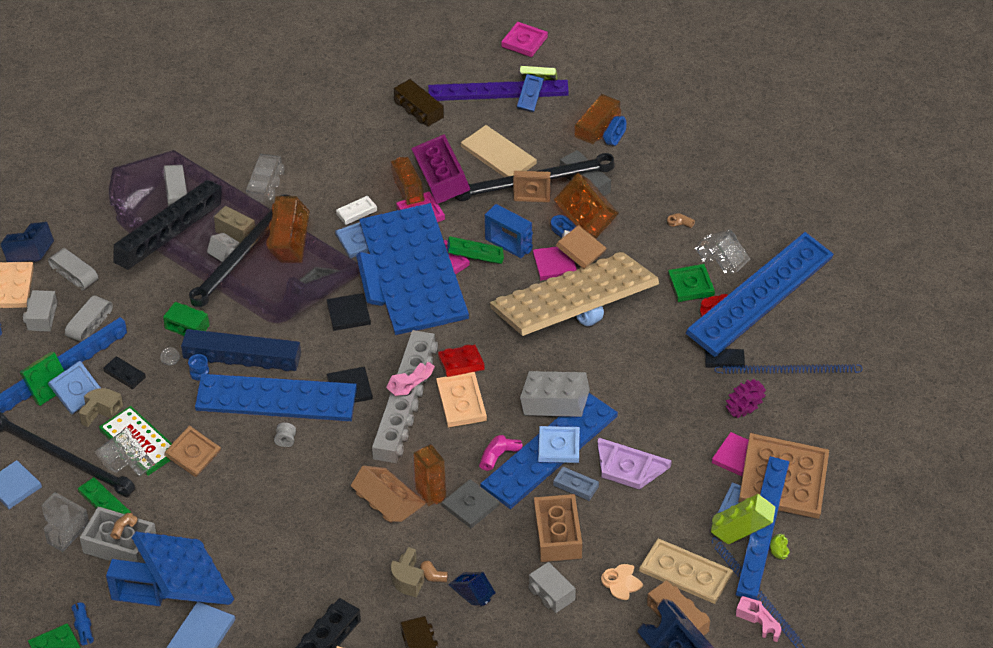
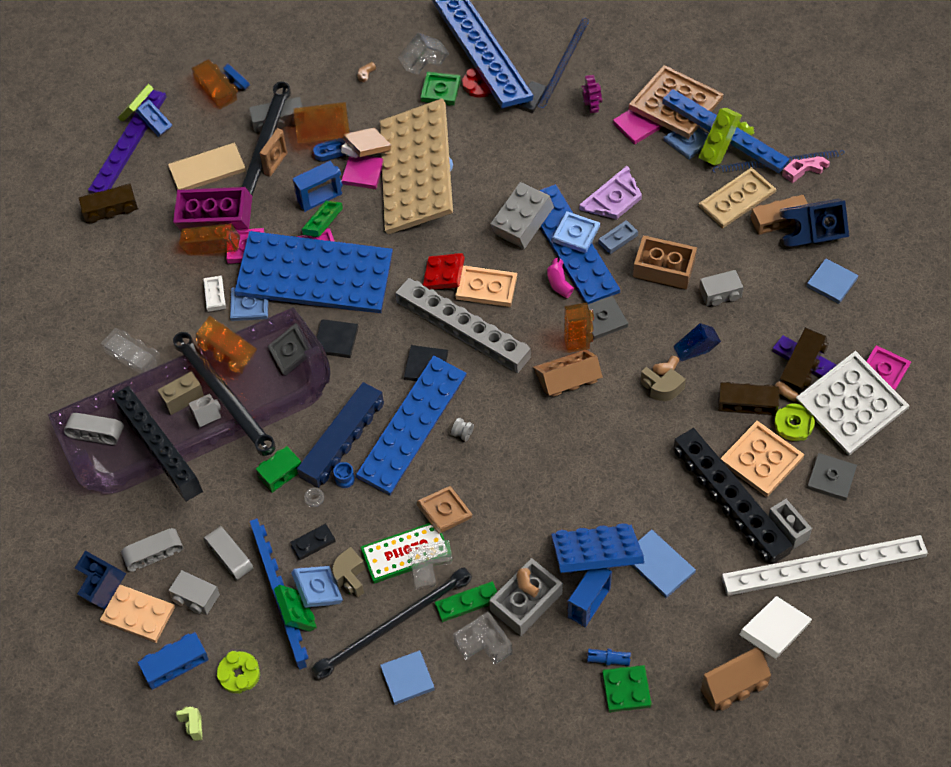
camera: 65 degrees left, 10 degrees up
(370, 278) = (312, 306): blue tile -> none
(402, 383) = (462, 313): bright pink piece -> none
(524, 39) = (77, 101): dark pink plate -> none
(623, 583) = (732, 241): light nougat plate -> none

